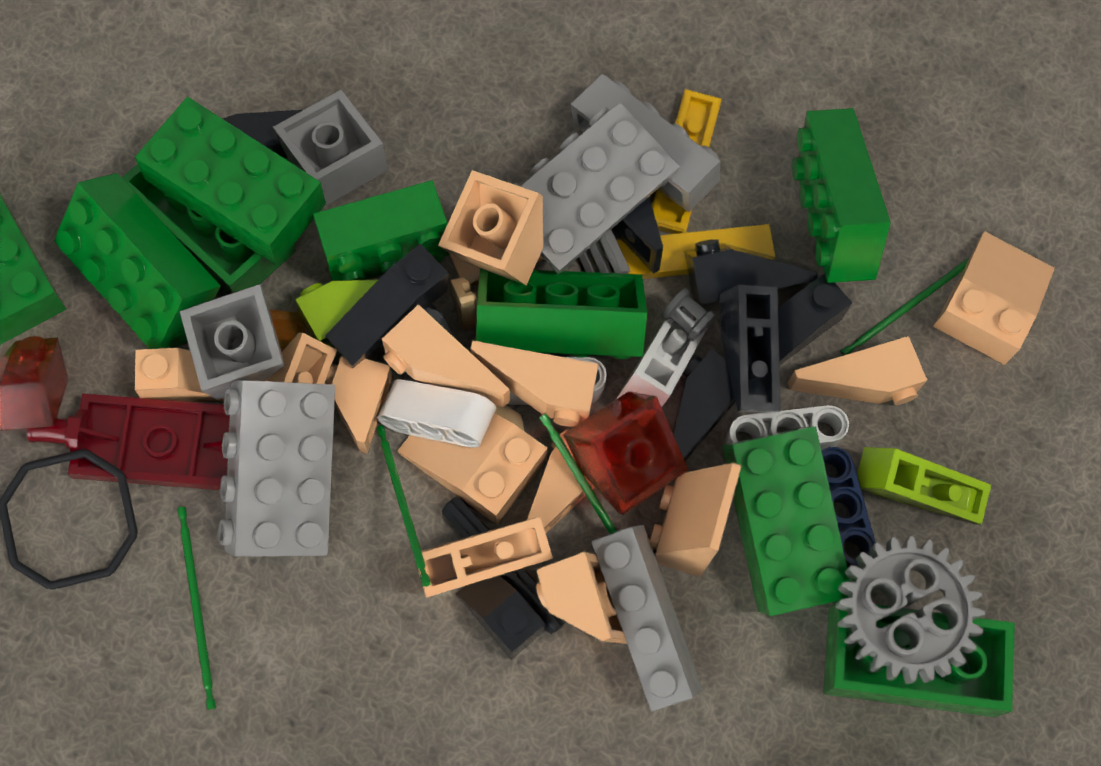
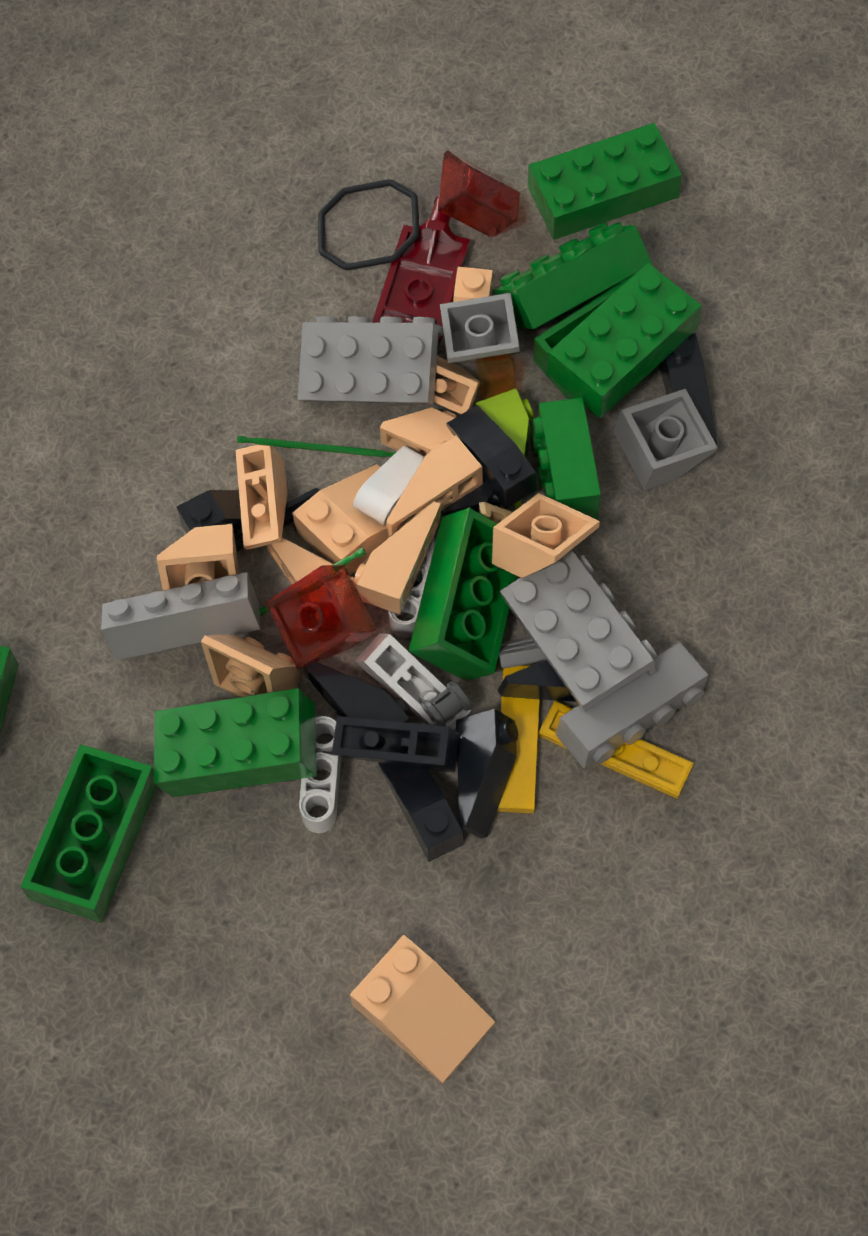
camera: 110 degrees right, 5 degrees down
(196, 608) = (280, 308): green piece -> none
(840, 196) = (535, 853): green brick -> none
(848, 492) = (225, 795): dark blue beam -> none
(868, 375) = (360, 866): light nougat slope -> none
(905, 308) = (427, 921): green piece -> none
(922, 484) = (245, 884): lime slope -> none
(929, 645) = (88, 820): light grey gear -> none

